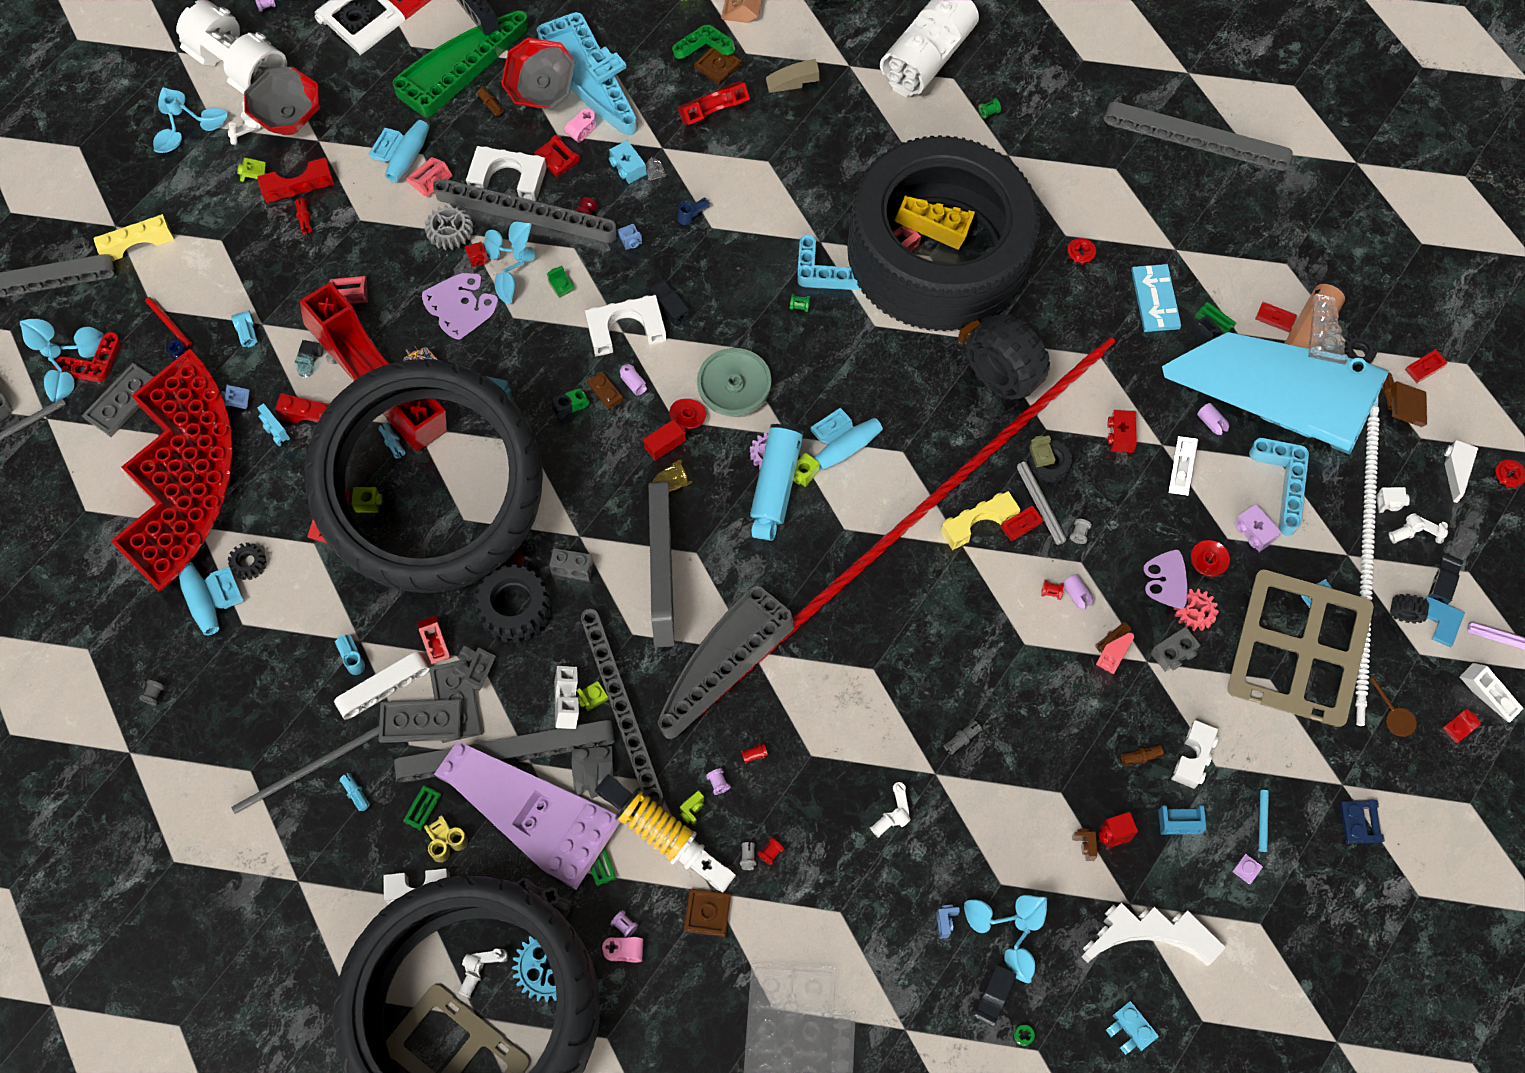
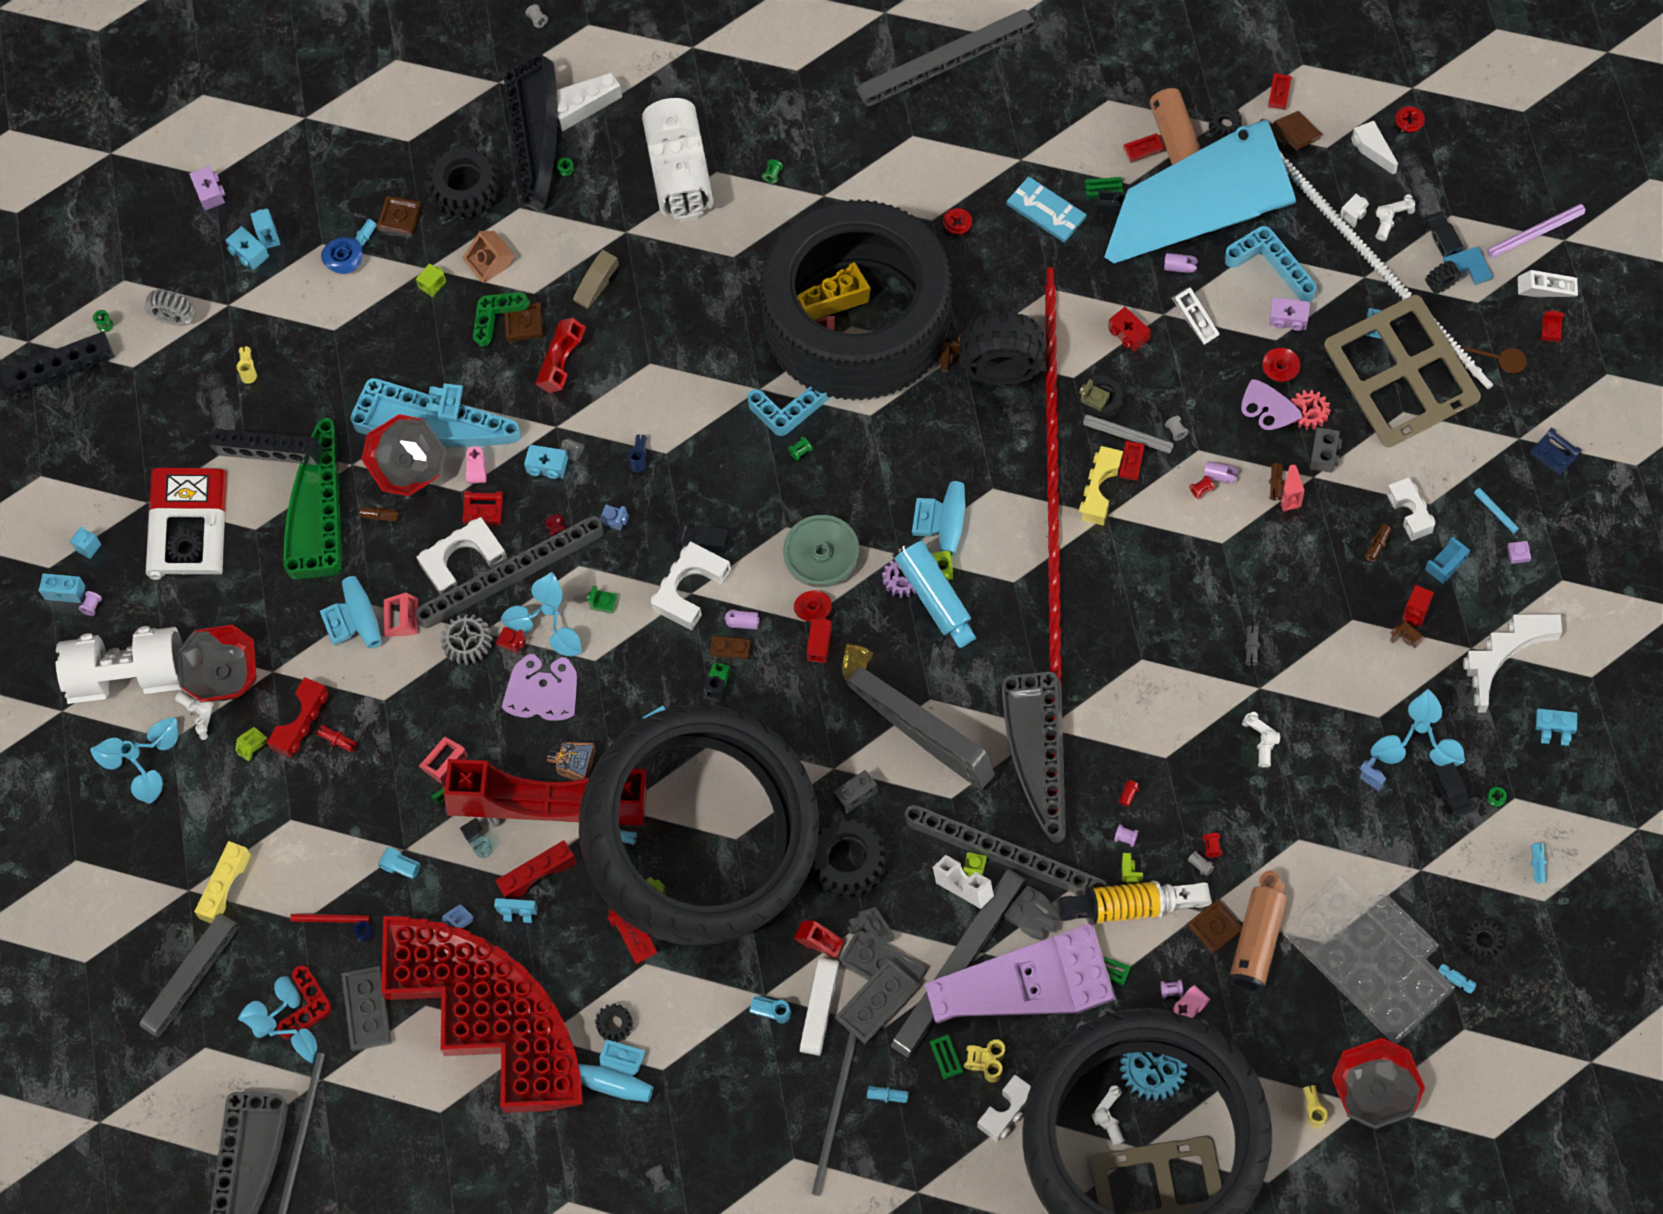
camera: 40 degrees left, 0 degrees up
(729, 949) = (1259, 934): none -> nougat piece
(1325, 332) = (1196, 128): clear wing -> none

